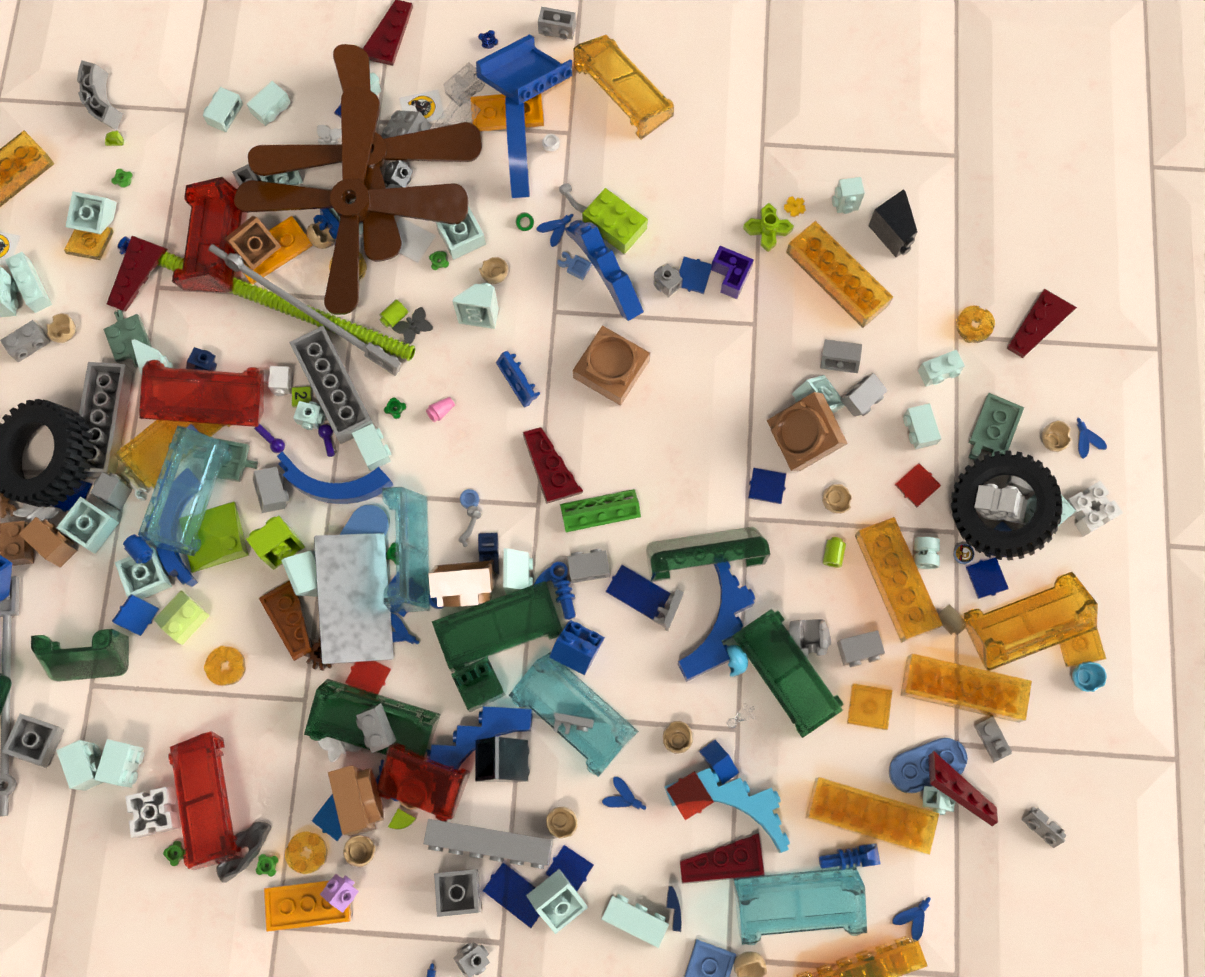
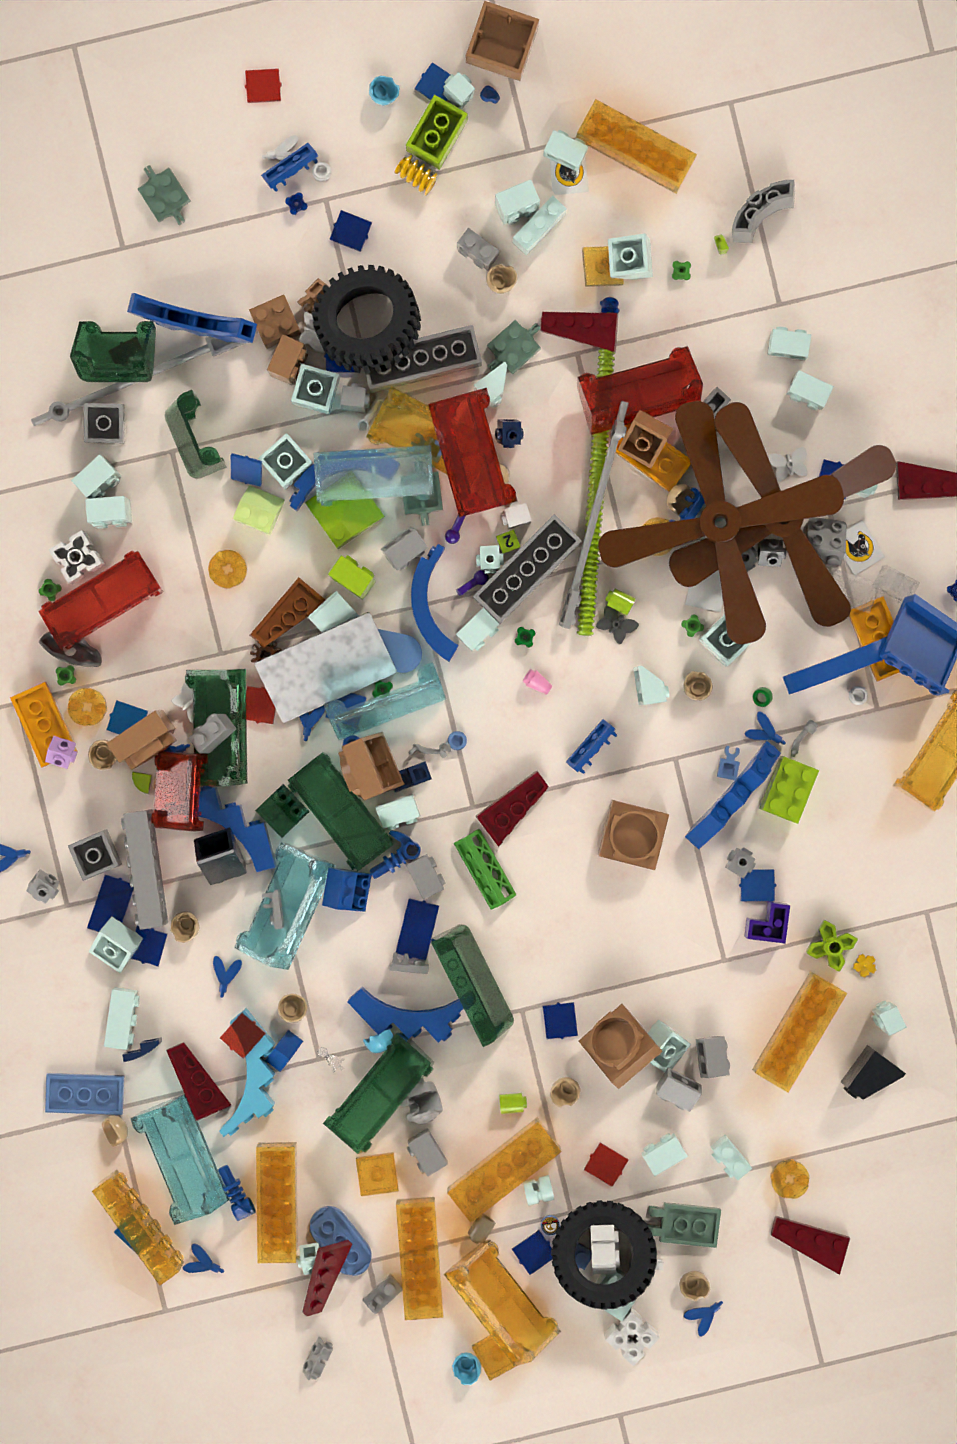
camera: 75 degrees right, 15 degrees up
(138, 549) = (303, 452): blue brick -> none

